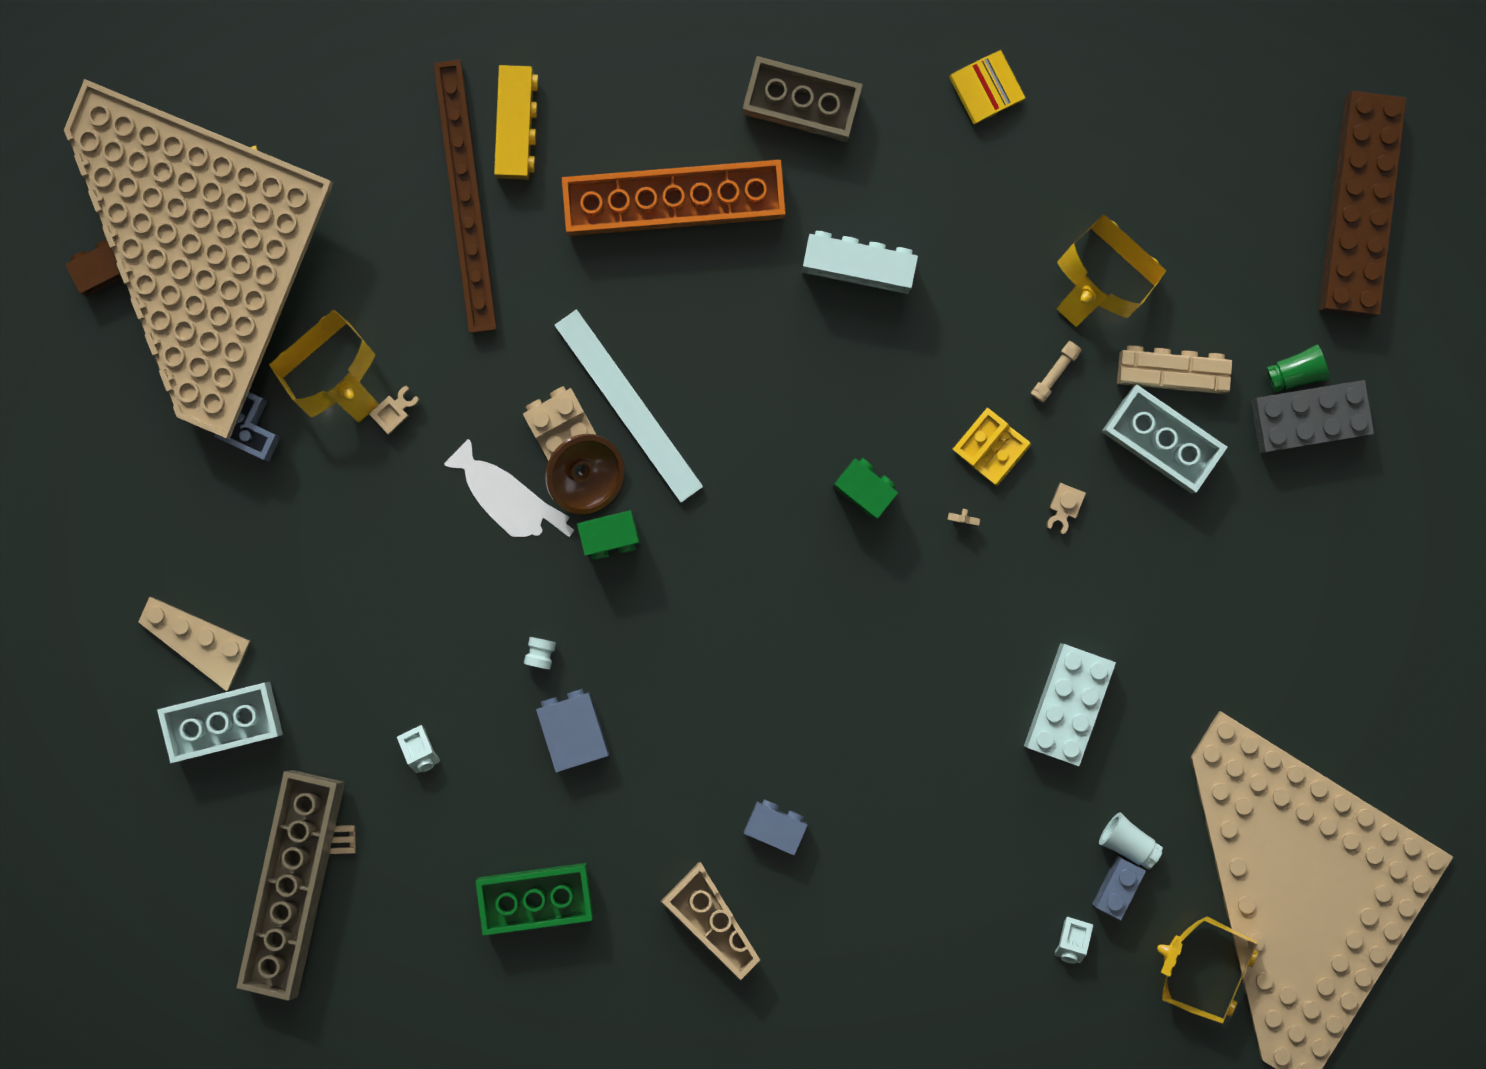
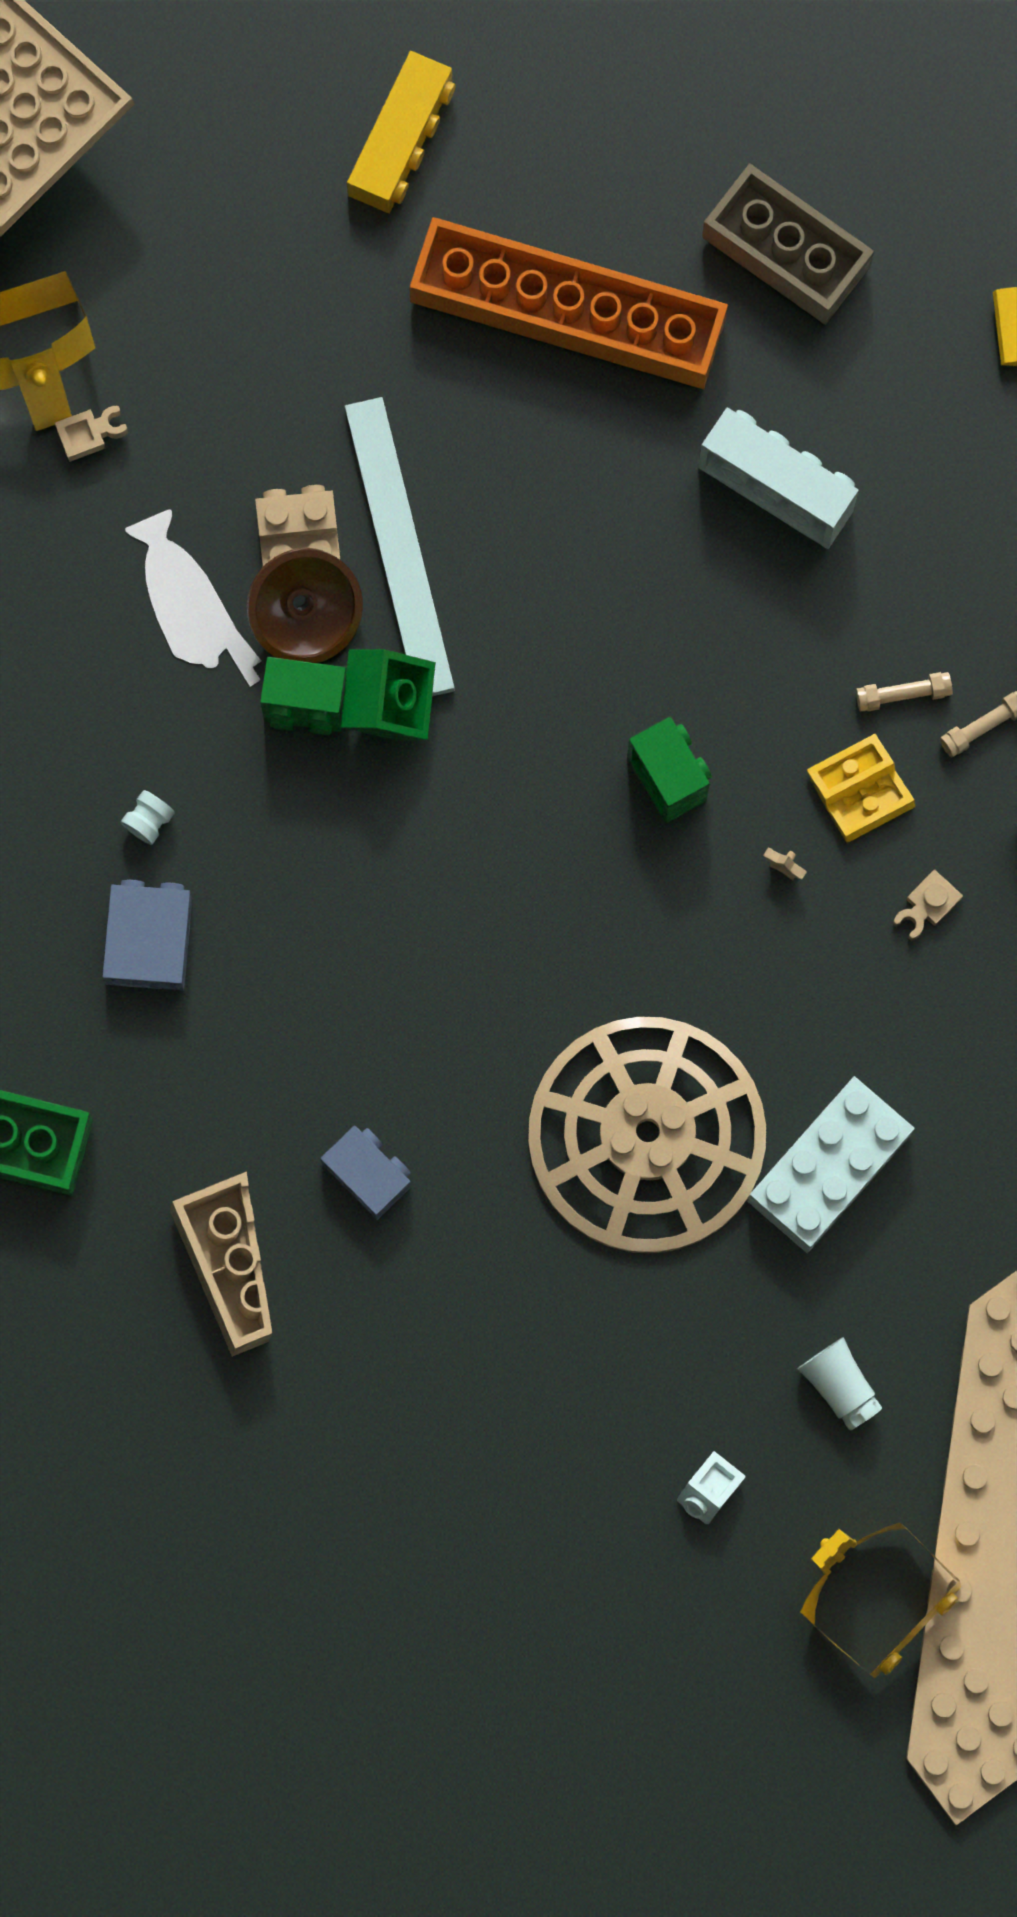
camera: 25 degrees right, 10 degrees down
(465, 196) = (296, 201): reddish brown plate -> none
(664, 513) = (388, 694): none -> green brick
(925, 724) = (647, 1159): none -> tan dish
(975, 384) = (937, 686): none -> tan bar
(1119, 887) = (800, 1438): sand blue brick -> none

